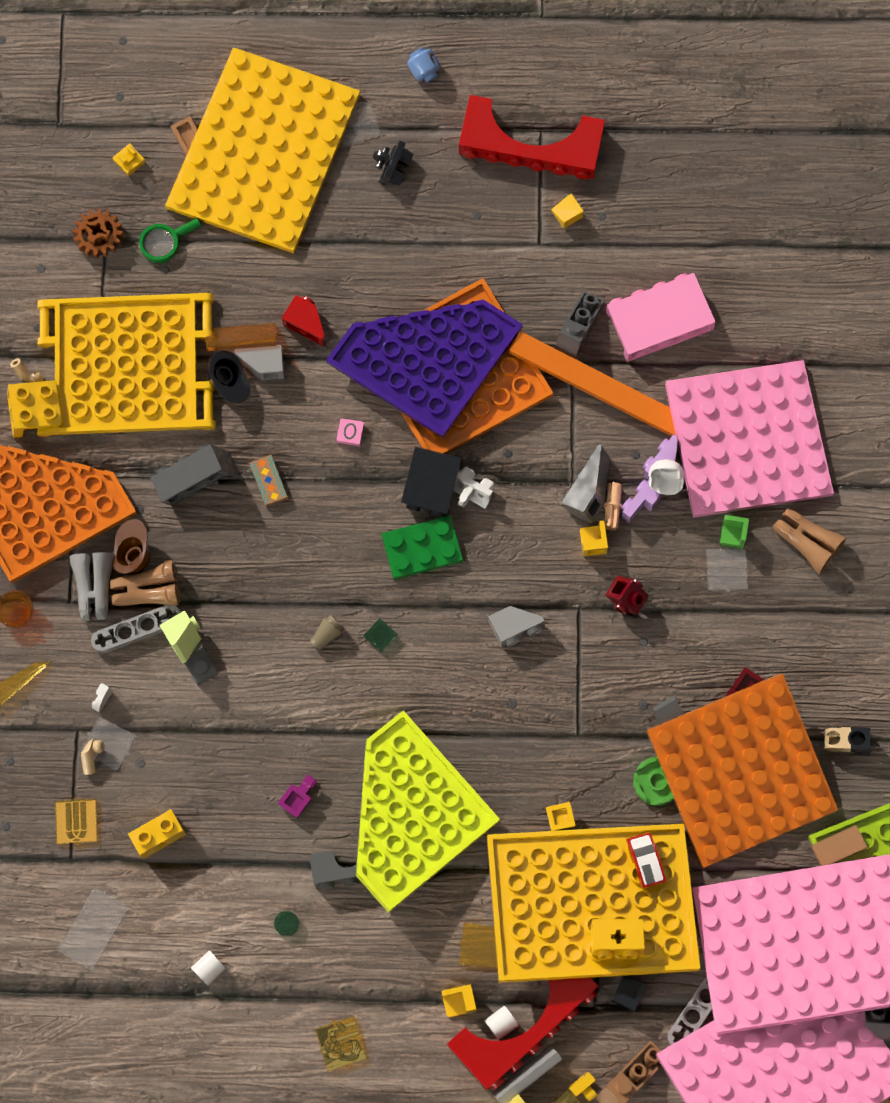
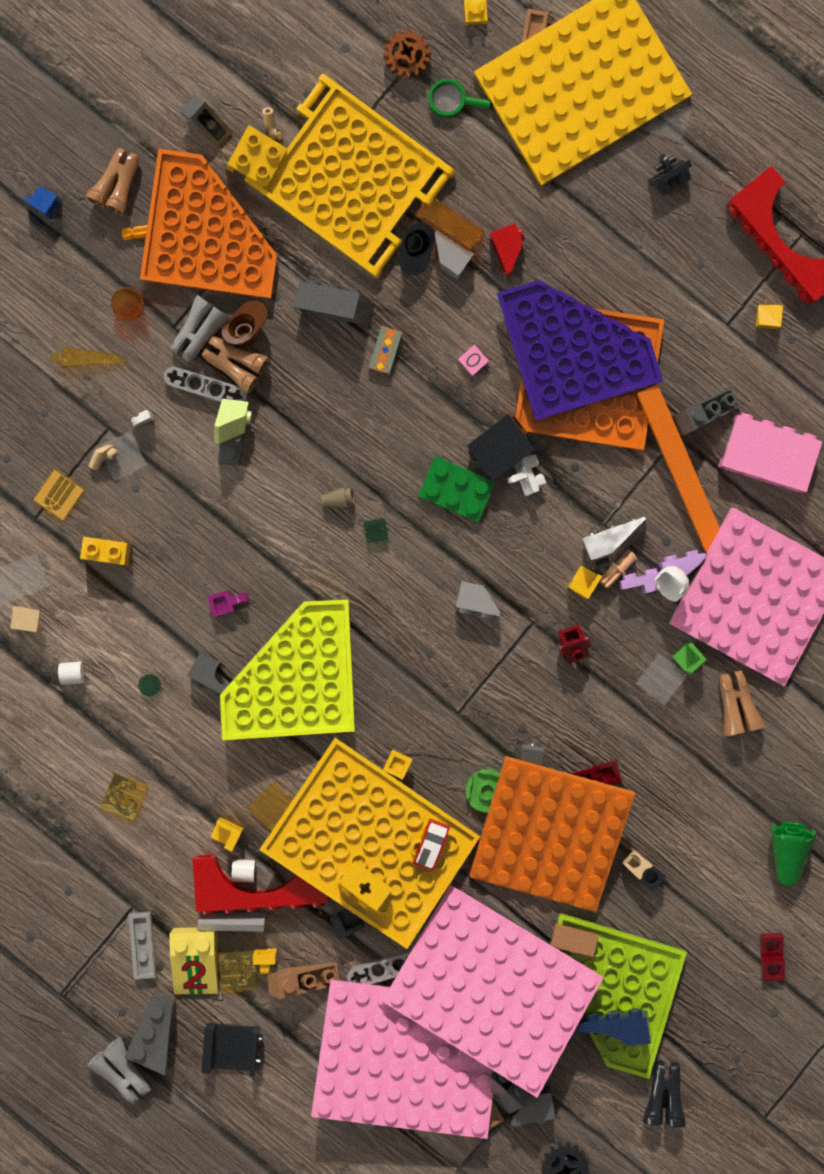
camera: 35 degrees right, 15 degrees up
(131, 949) = (25, 619): none -> tan panel
(424, 64) = (757, 112): medium blue head -> none

